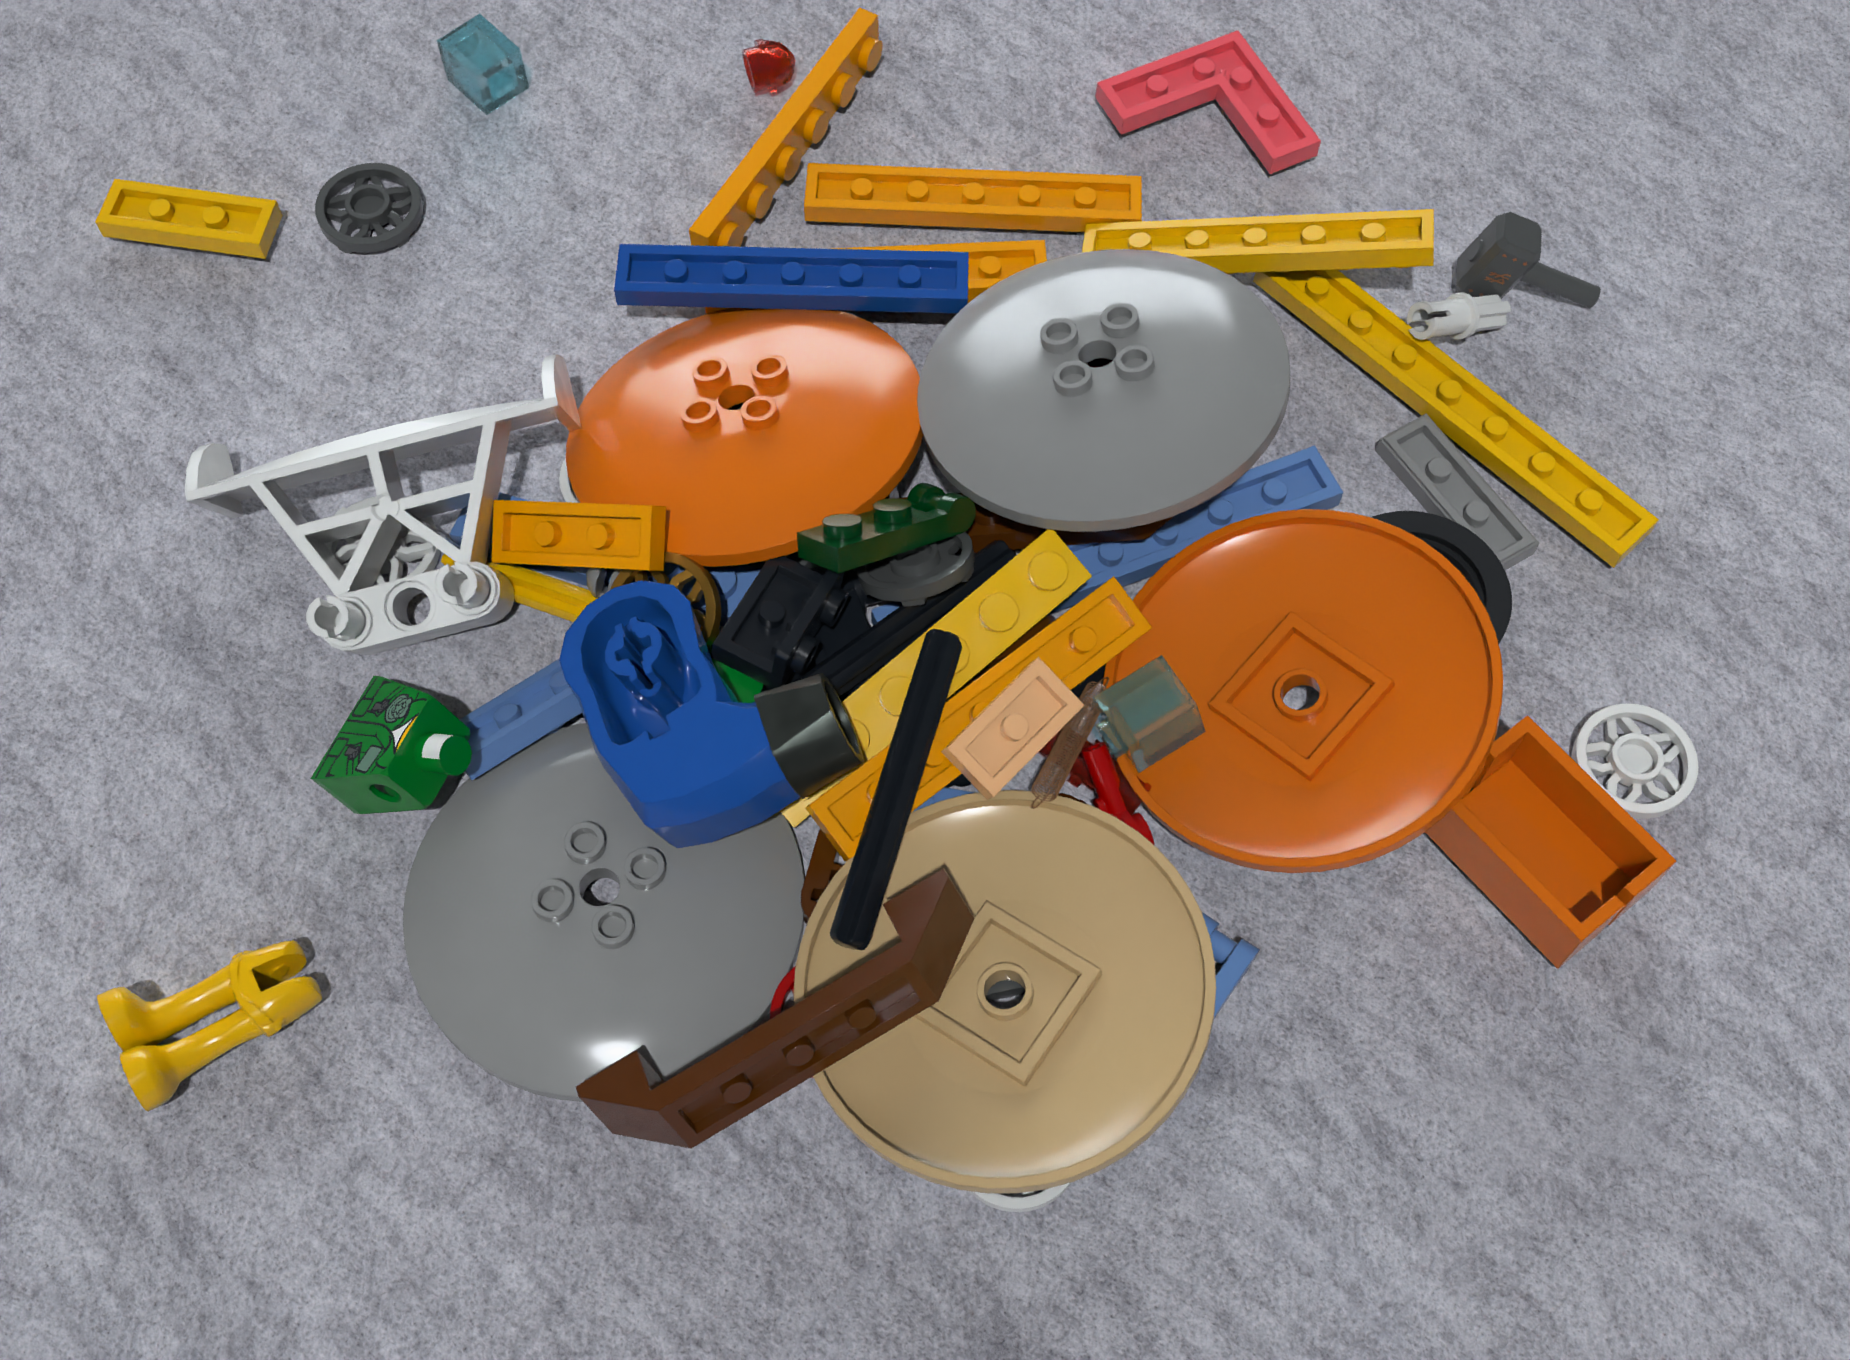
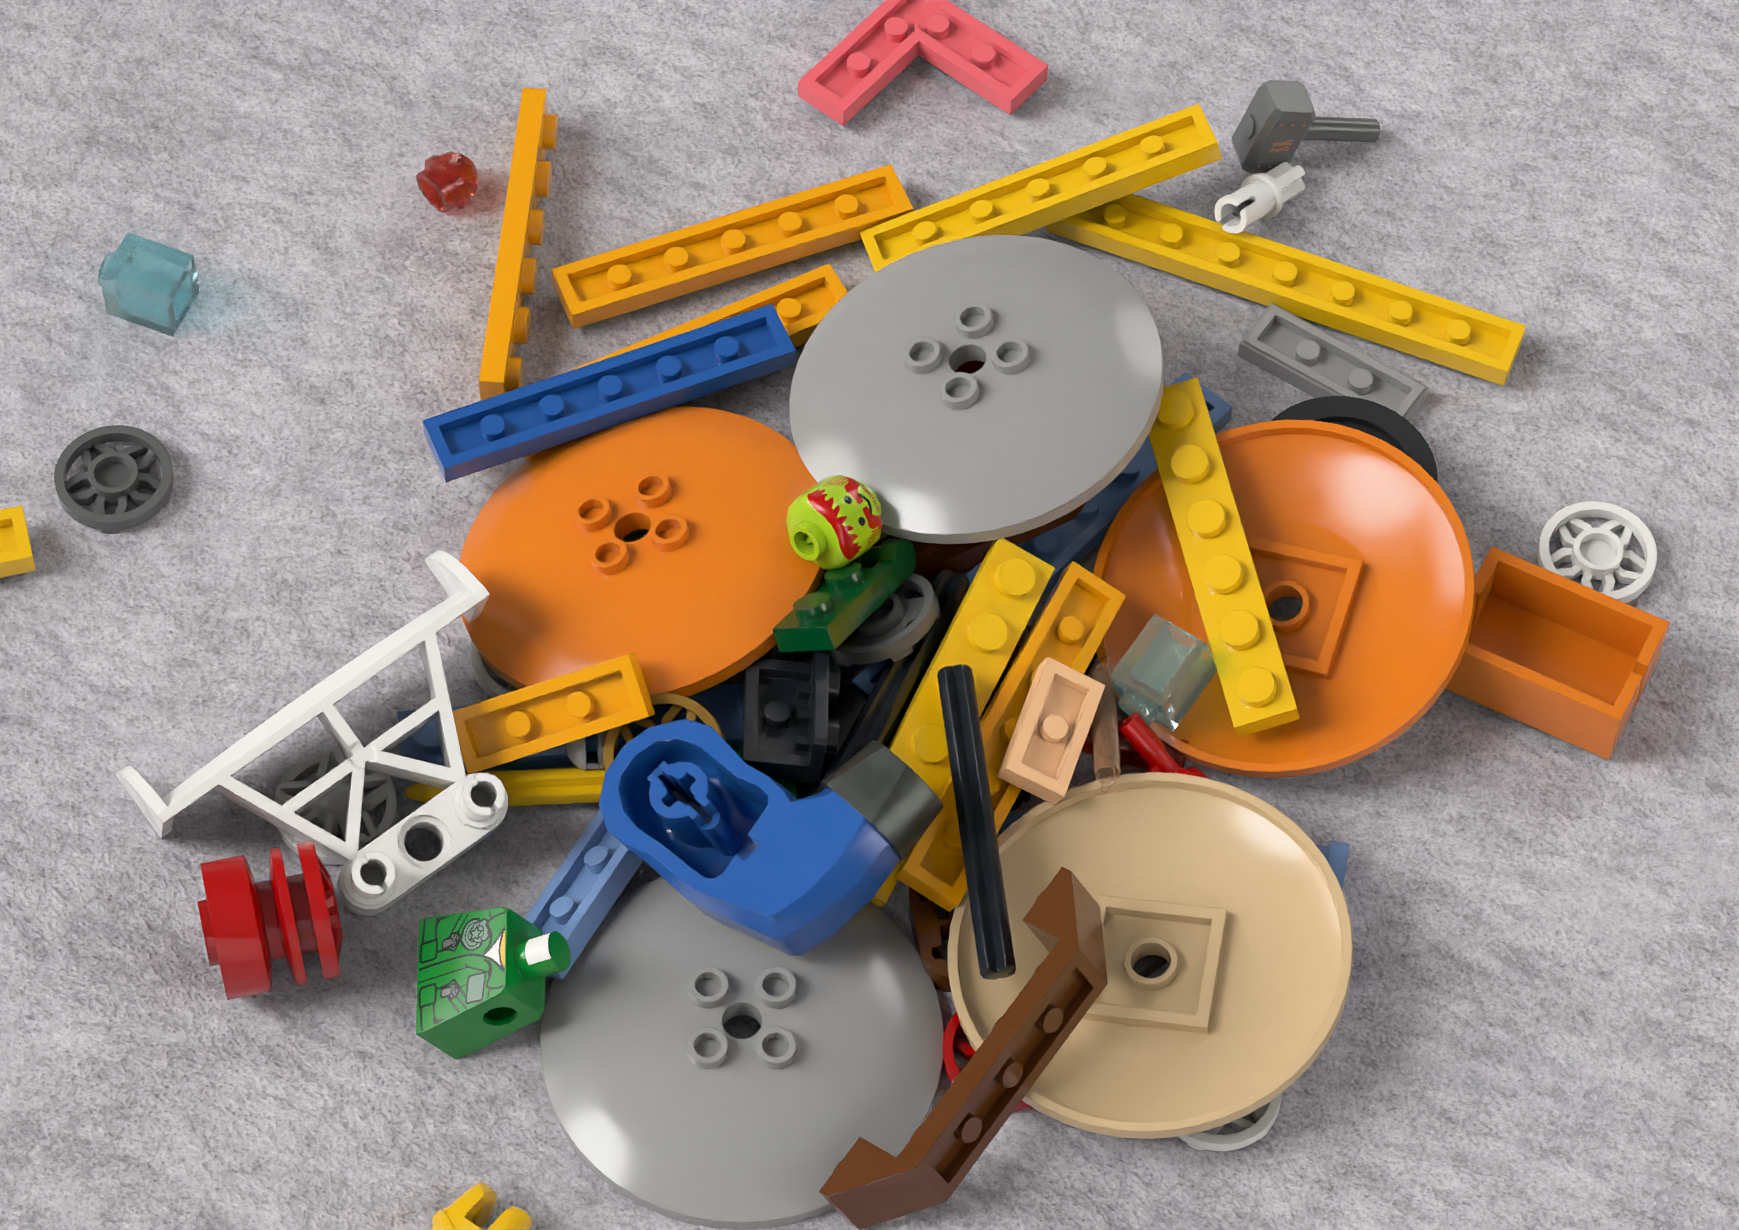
camera: 25 degrees left, 5 degrees down
(241, 624) = (269, 920): none -> red wheel
(905, 457) = (836, 520): none -> lime head
(1253, 631) = (1220, 562): none -> yellow plate

